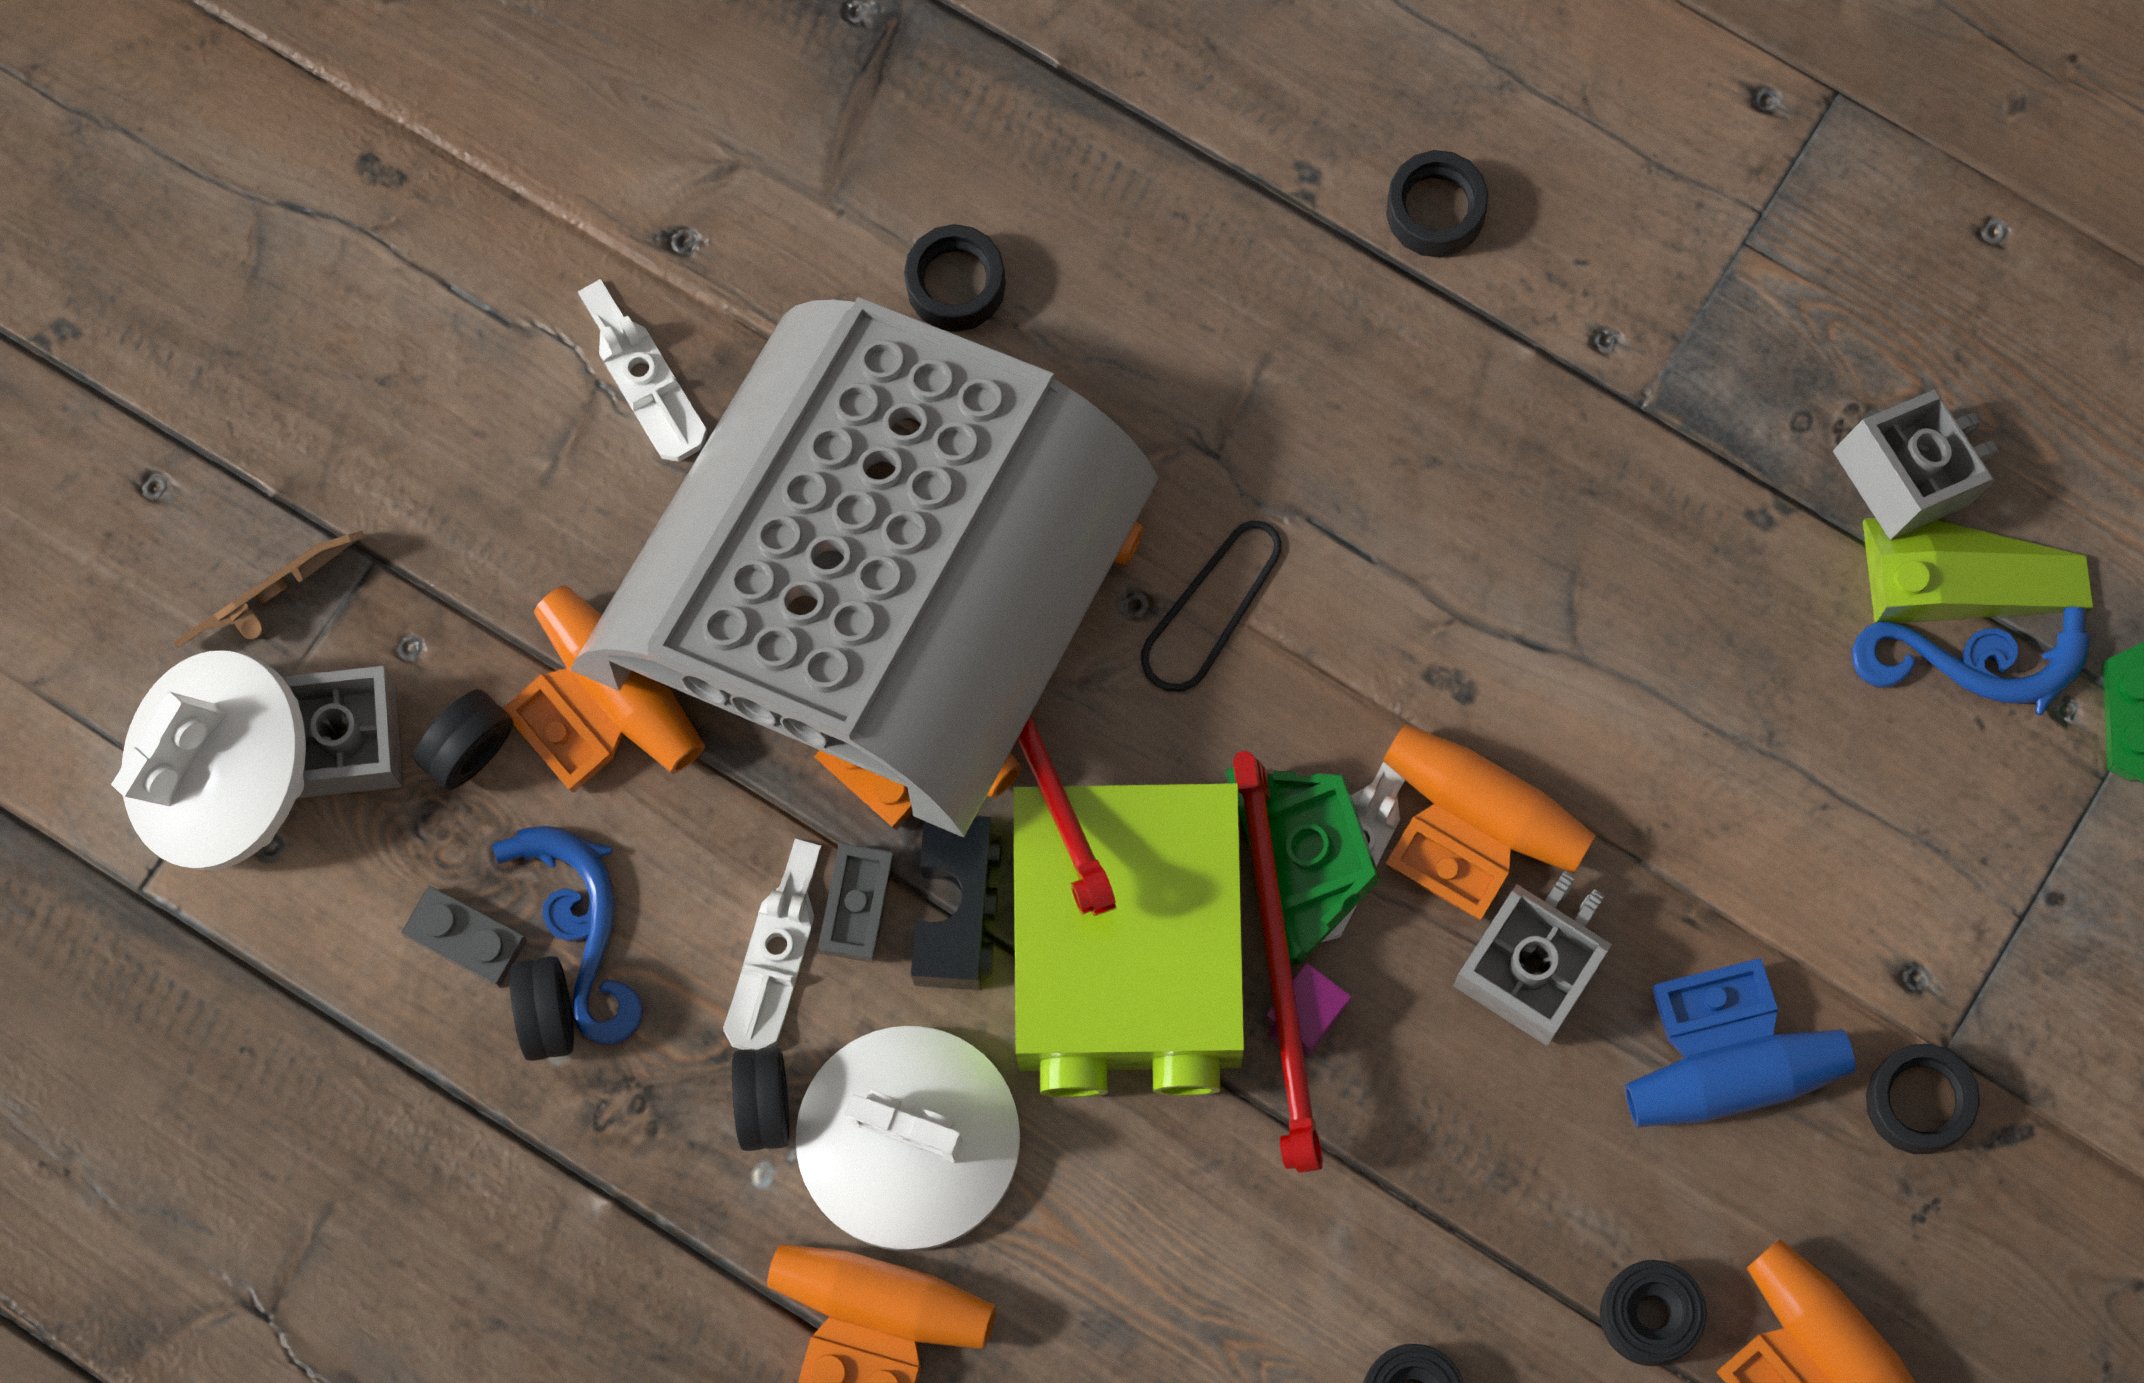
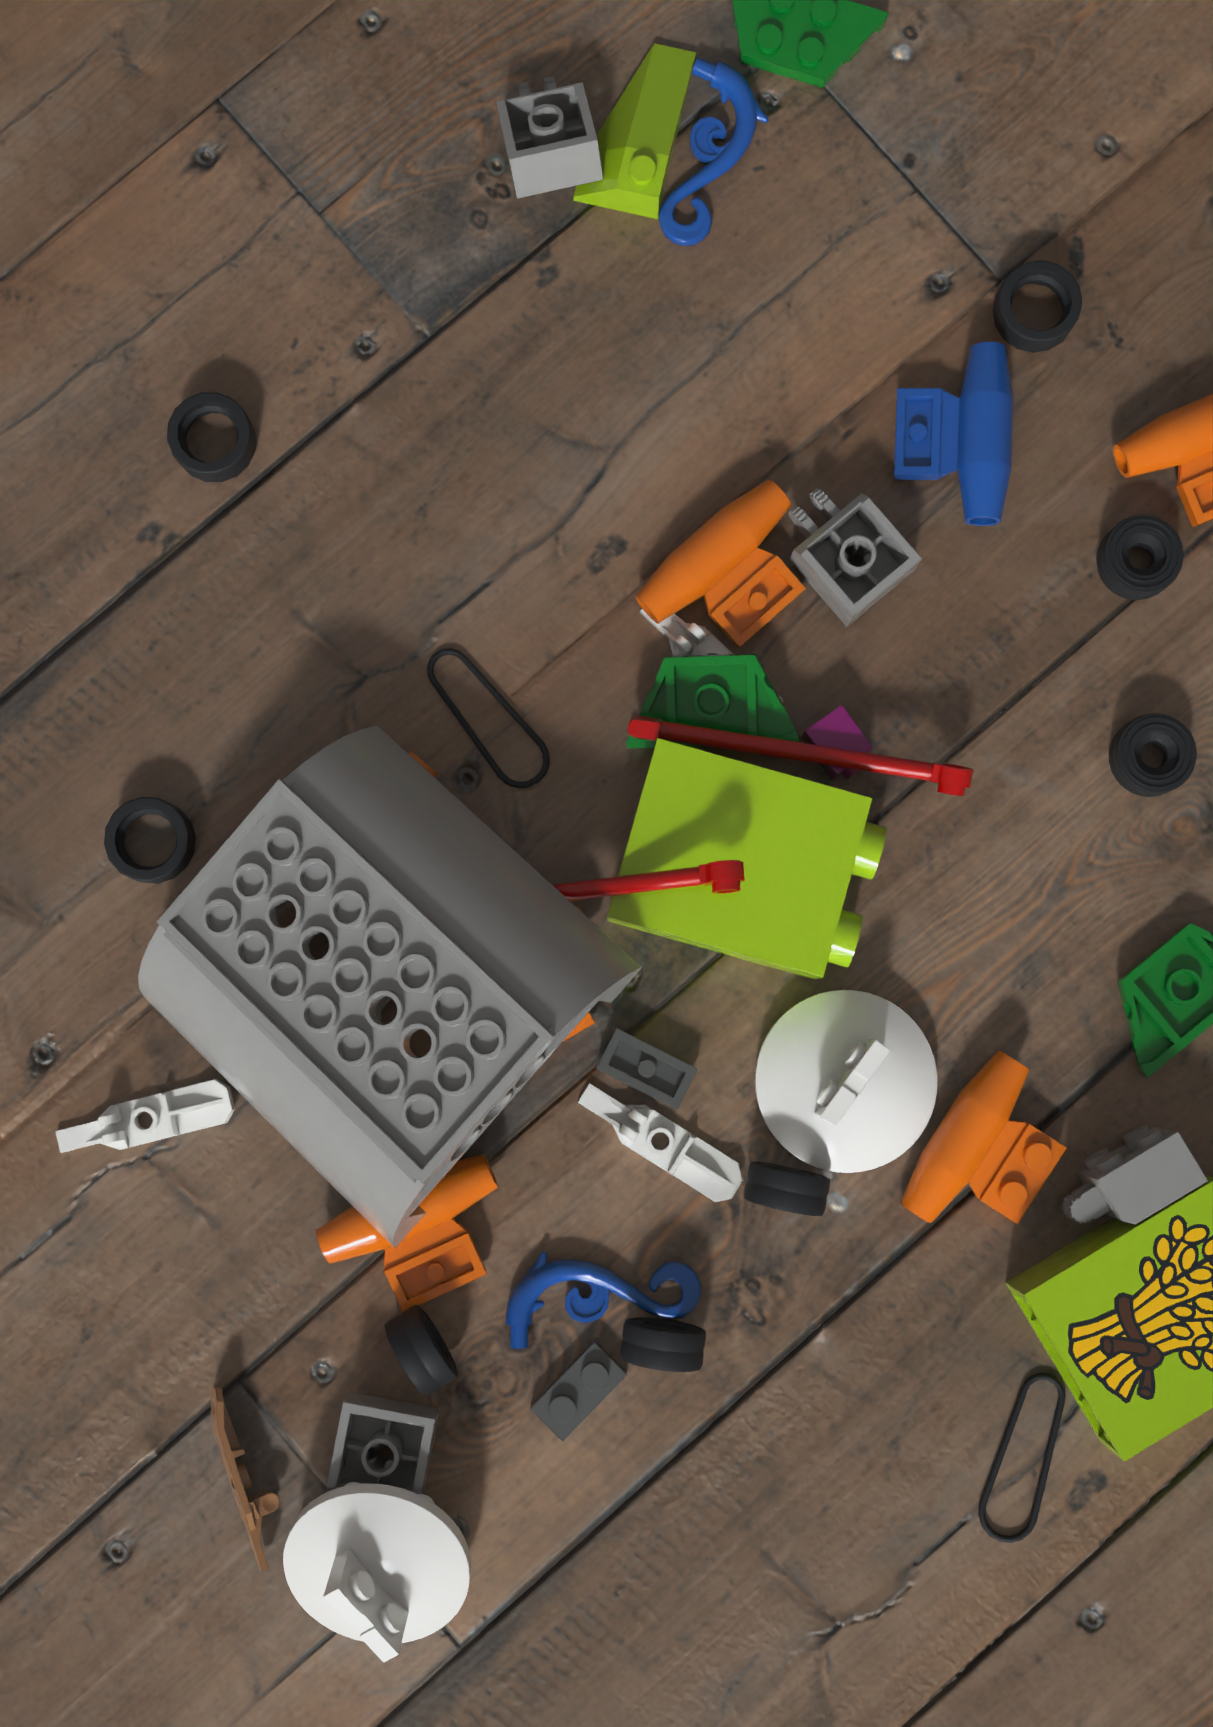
camera: 75 degrees left, 10 degrees up
(954, 949) = (709, 999): black arch -> none

